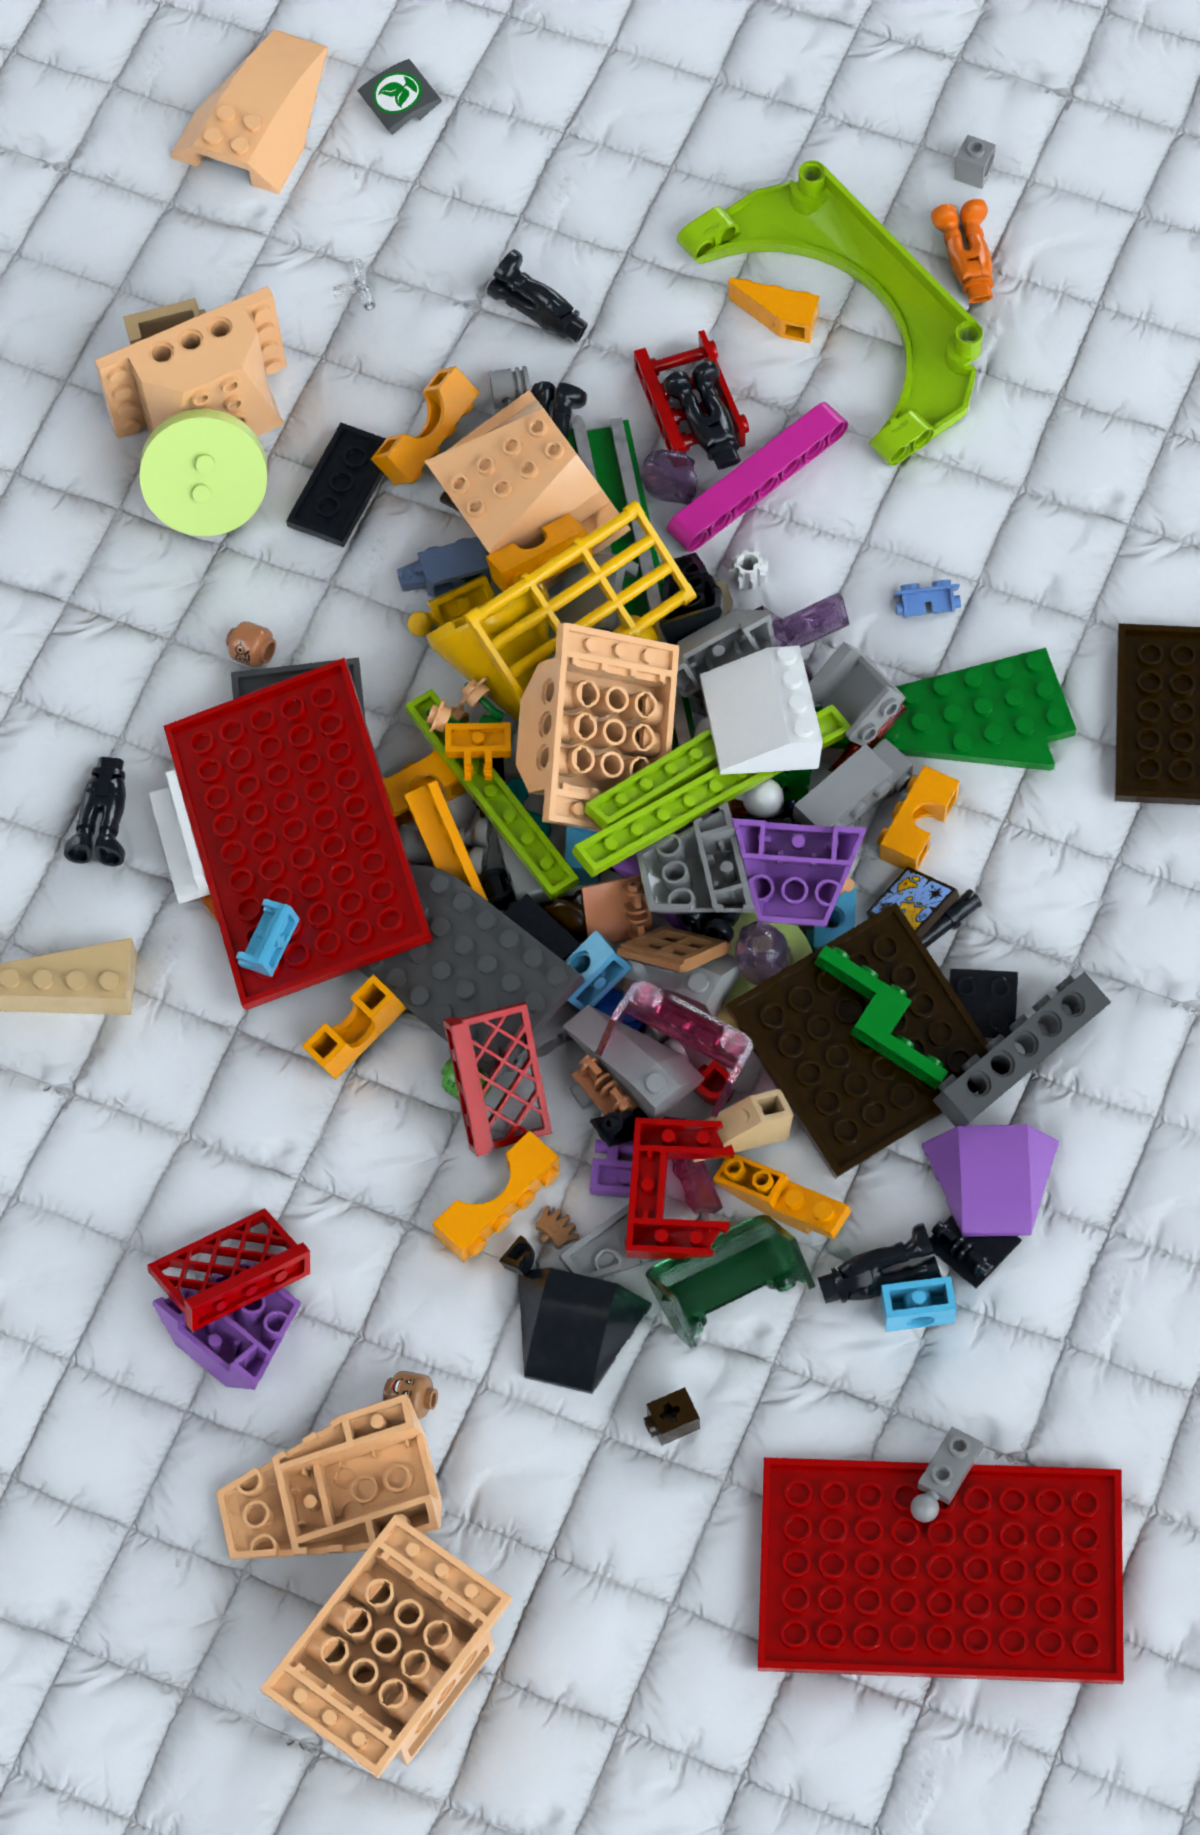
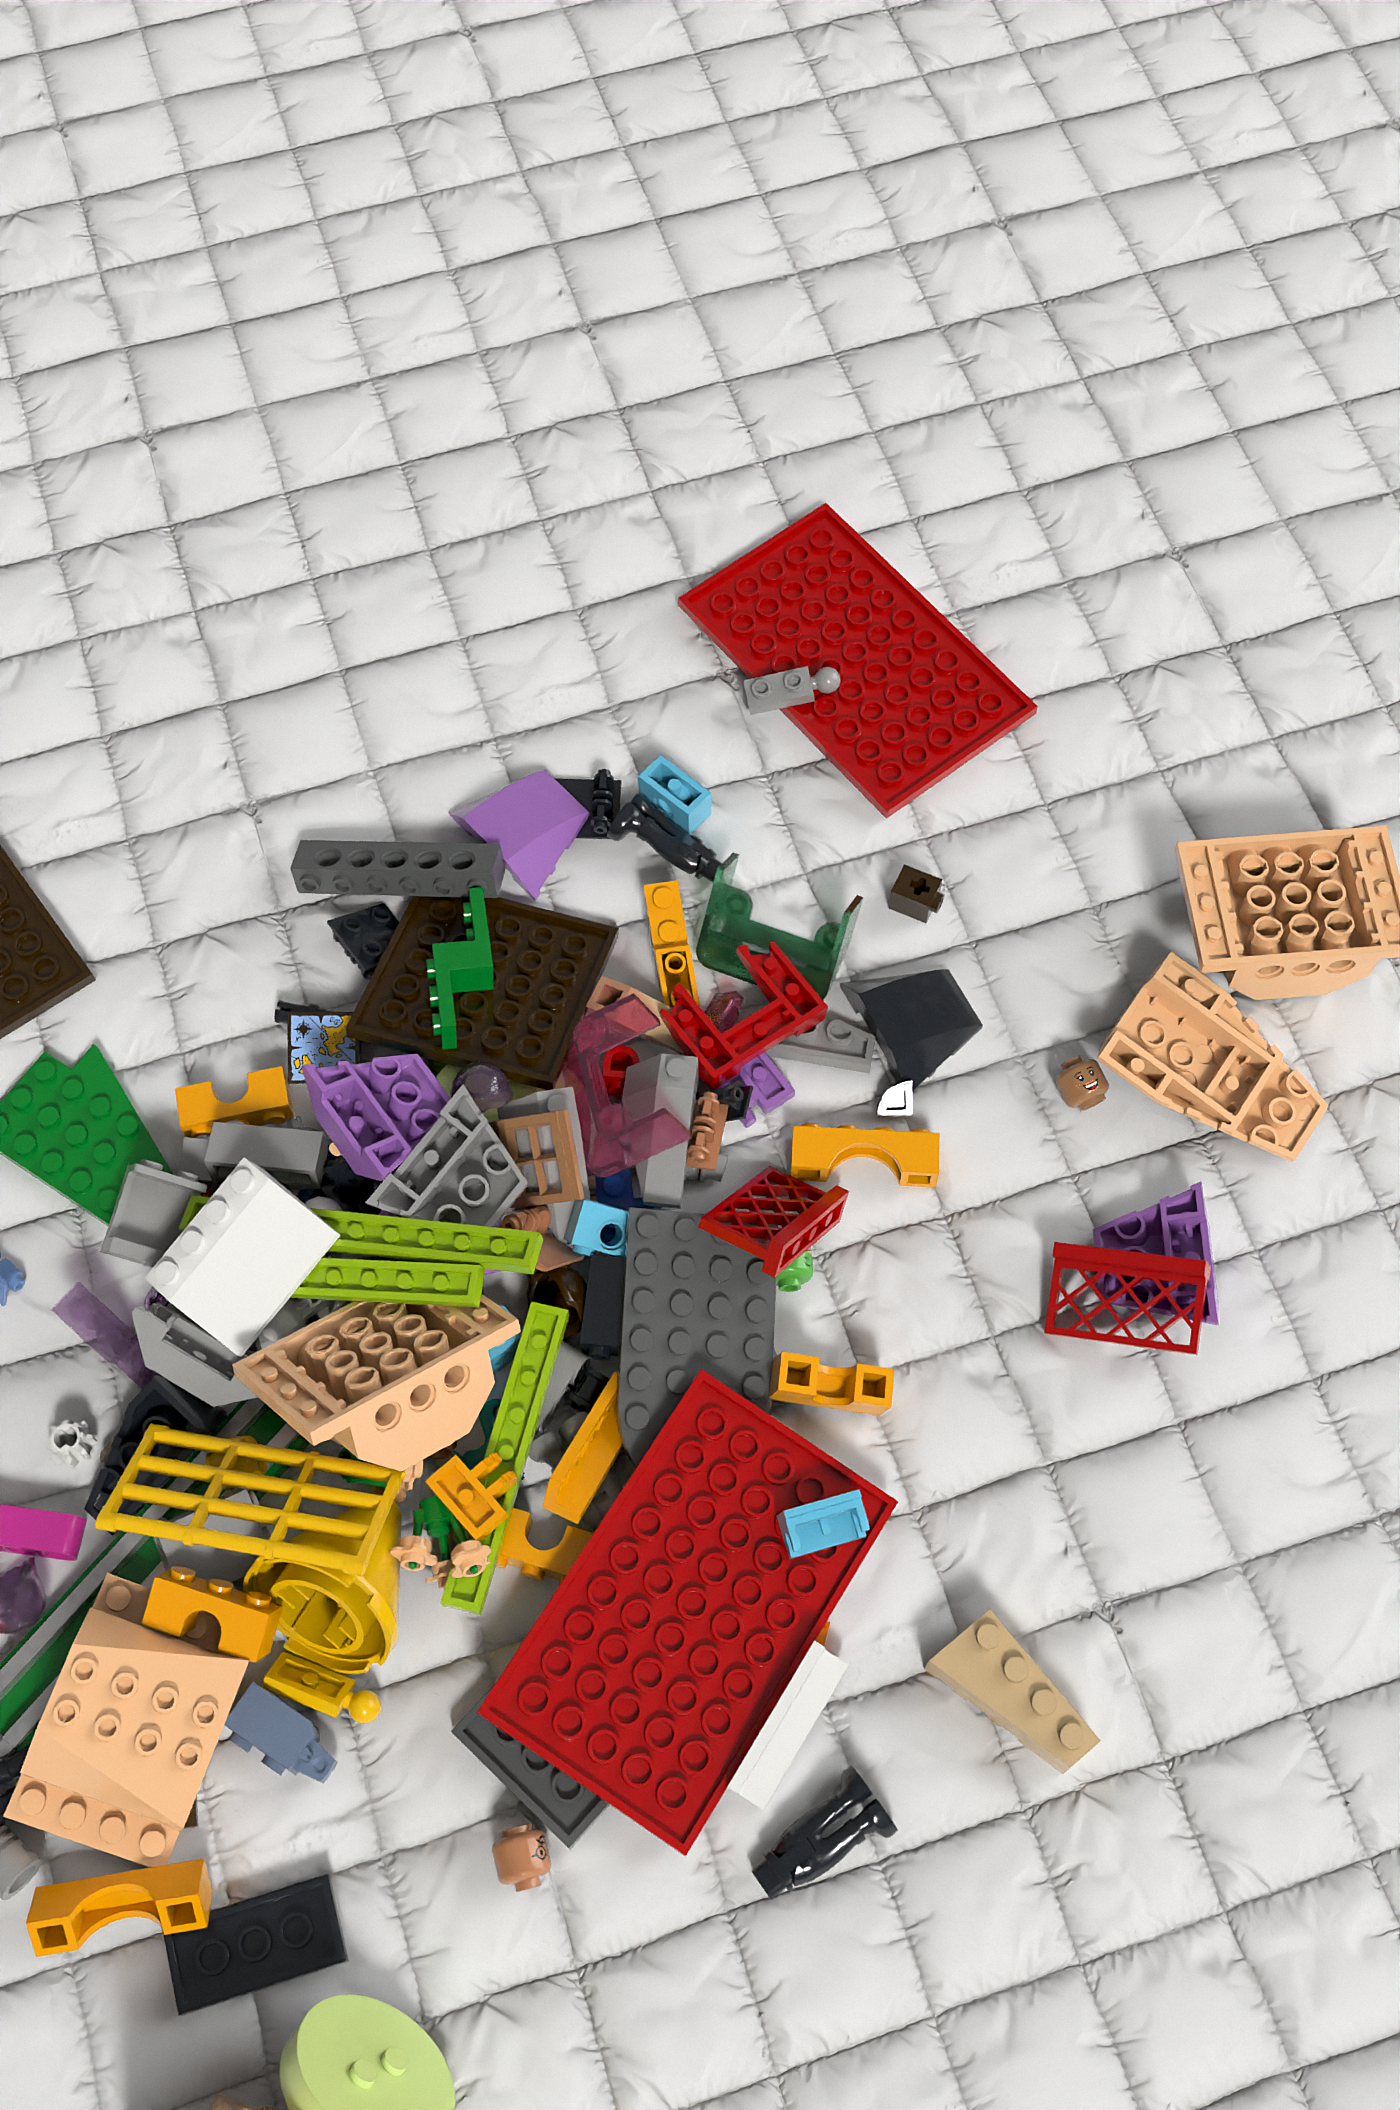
camera: 135 degrees left, 0 degrees up
(556, 1229) = (844, 1100): medium nougat piece -> none

